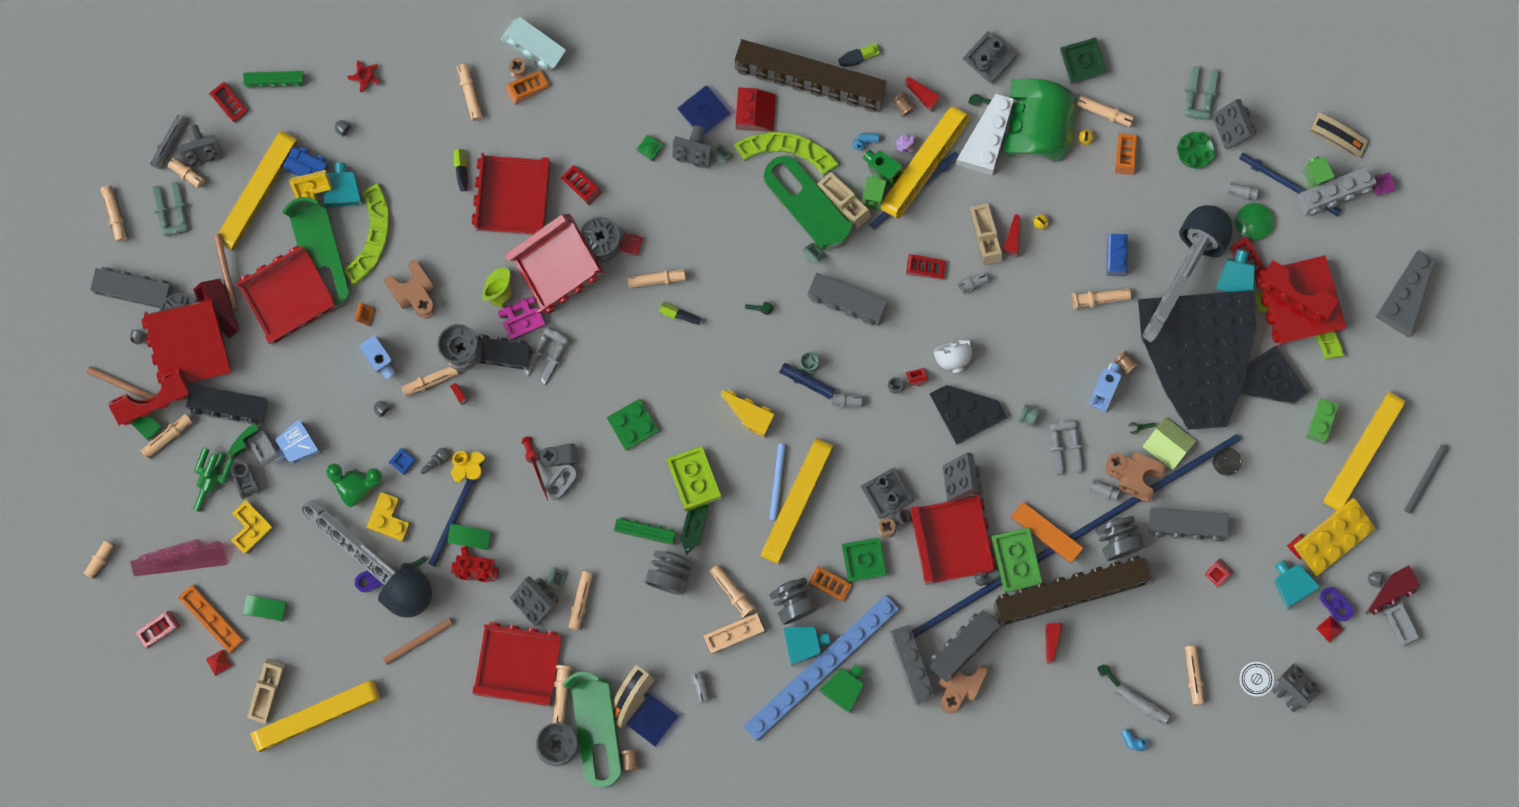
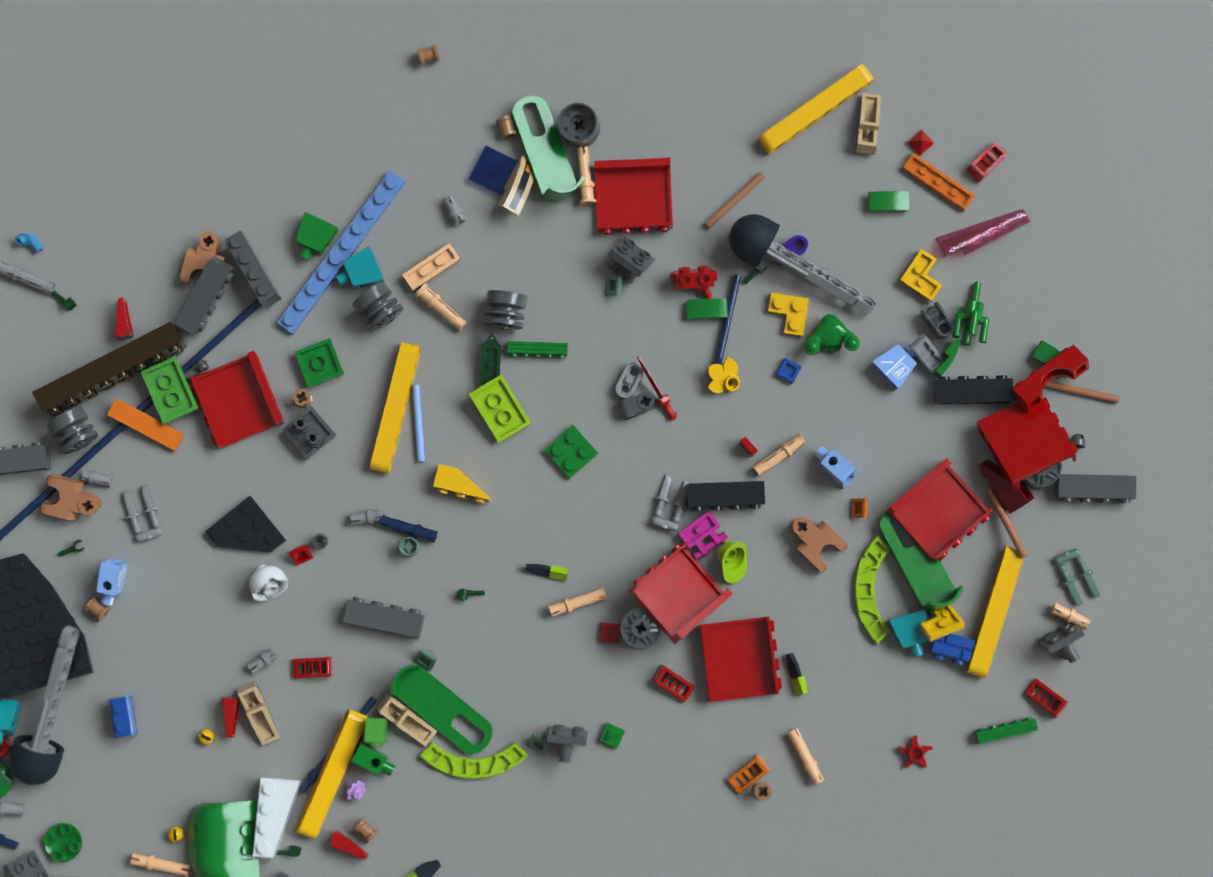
camera: 170 degrees right, 5 degrees up
(98, 559) = (1060, 216): light nougat pin -> none
(116, 221) = (1132, 559): light nougat pin -> none
(158, 159) = (1101, 621): flat silver pin -> none
(170, 433) = (1021, 352): light nougat pin -> none
(342, 127) = (925, 693): dark grey hinge -> none
(381, 408) = (821, 418): dark grey hinge -> none
(441, 456) = (752, 383): dark grey bar -> none
(455, 338) = (765, 482): dark grey wheel -> none
(533, 43) = (752, 818): light aqua wedge -> none
(580, 601) = (585, 268): light nougat pin -> none
(704, 110) = (565, 785): clear blue plate -> none
(755, 110) = (513, 795): red slope -> none
(810, 75) = (461, 840): dark brown brick -> none
(813, 583) = (363, 337): orange slope -> none
(863, 139) = (399, 786): dark azure arm -> none
(902, 517) = (290, 411): dark grey hinge -> none
(961, 477) = (237, 459): dark grey plate -> none
(1028, 415) = (183, 537): sand green wheel -> none
(1091, 299) = (140, 667): light nougat pin -> none
(1126, 166) = (124, 817): orange slope -> none
(1169, 444) = (41, 537): yellowish green slope -> none

